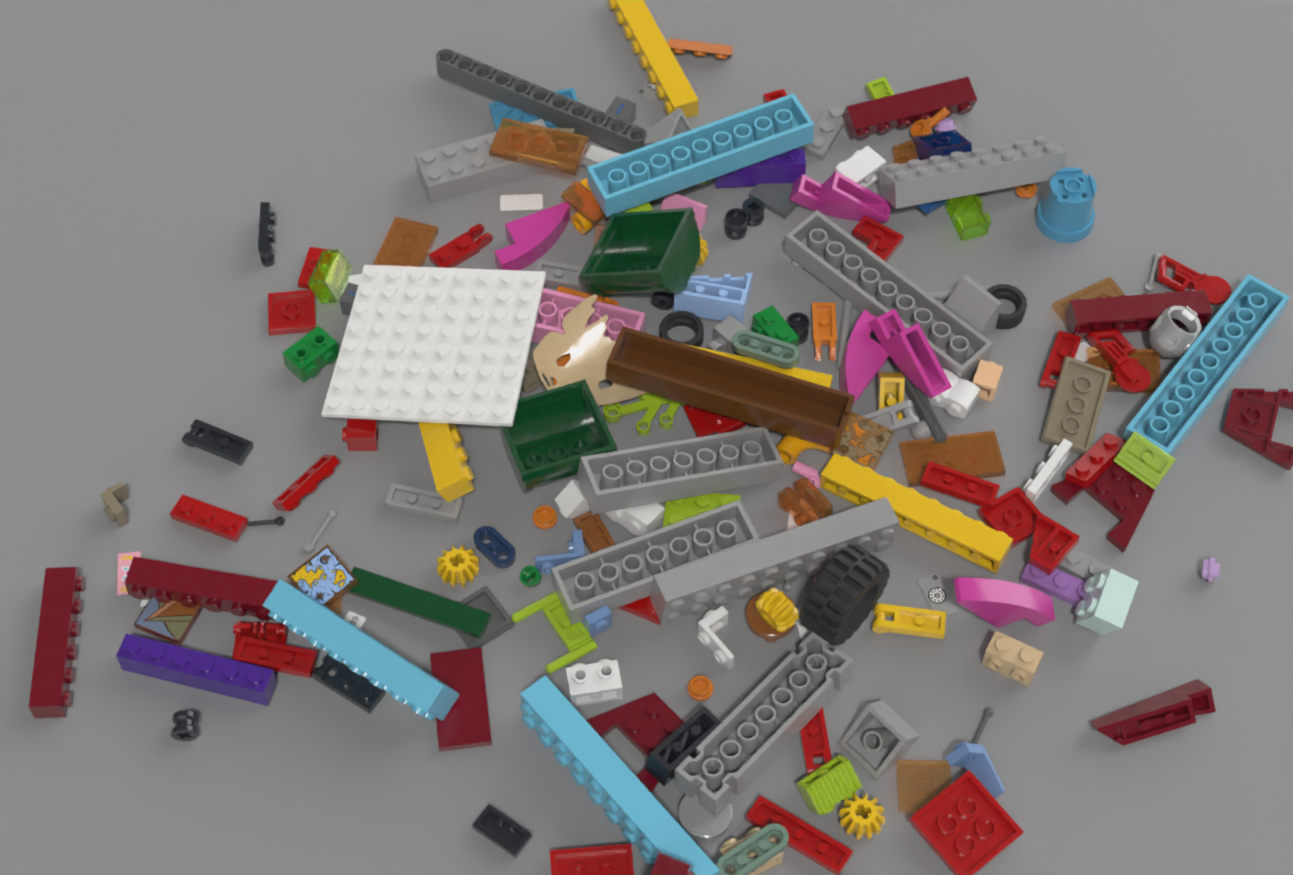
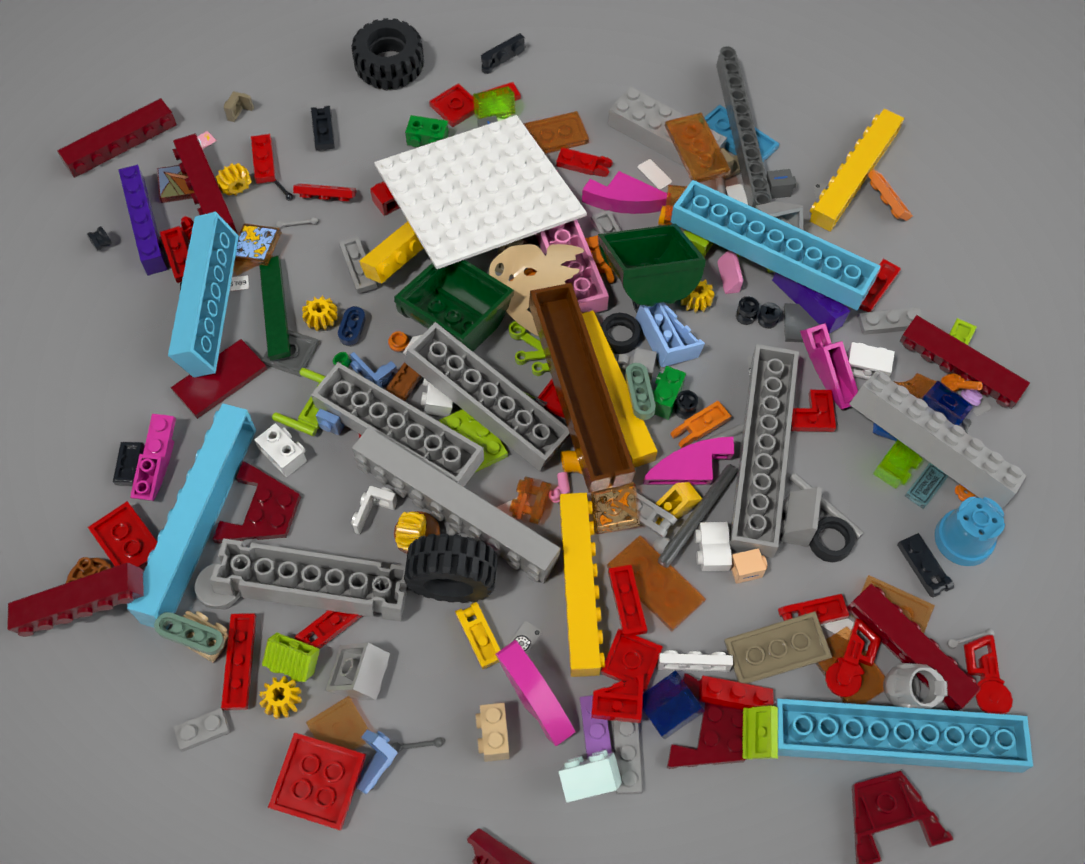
camera: 55 degrees right, 5 degrees up
(182, 352) = (384, 37): none -> black tyre
(222, 553) = (233, 179): none -> yellow gear
(515, 802) = (155, 458): none -> dark pink slope
(680, 745) = (255, 531): black brick -> none
(700, 688) = (323, 522): orange plate -> none
(911, 353) = (716, 493): dark pink slope -> none
(1000, 211) = (926, 485): none -> clear light blue tile
(1070, 260) = (925, 565): none -> black plate
(1077, 508) = (670, 705): none -> clear blue slope
(1210, 569) = (697, 851): lavender plate -> none

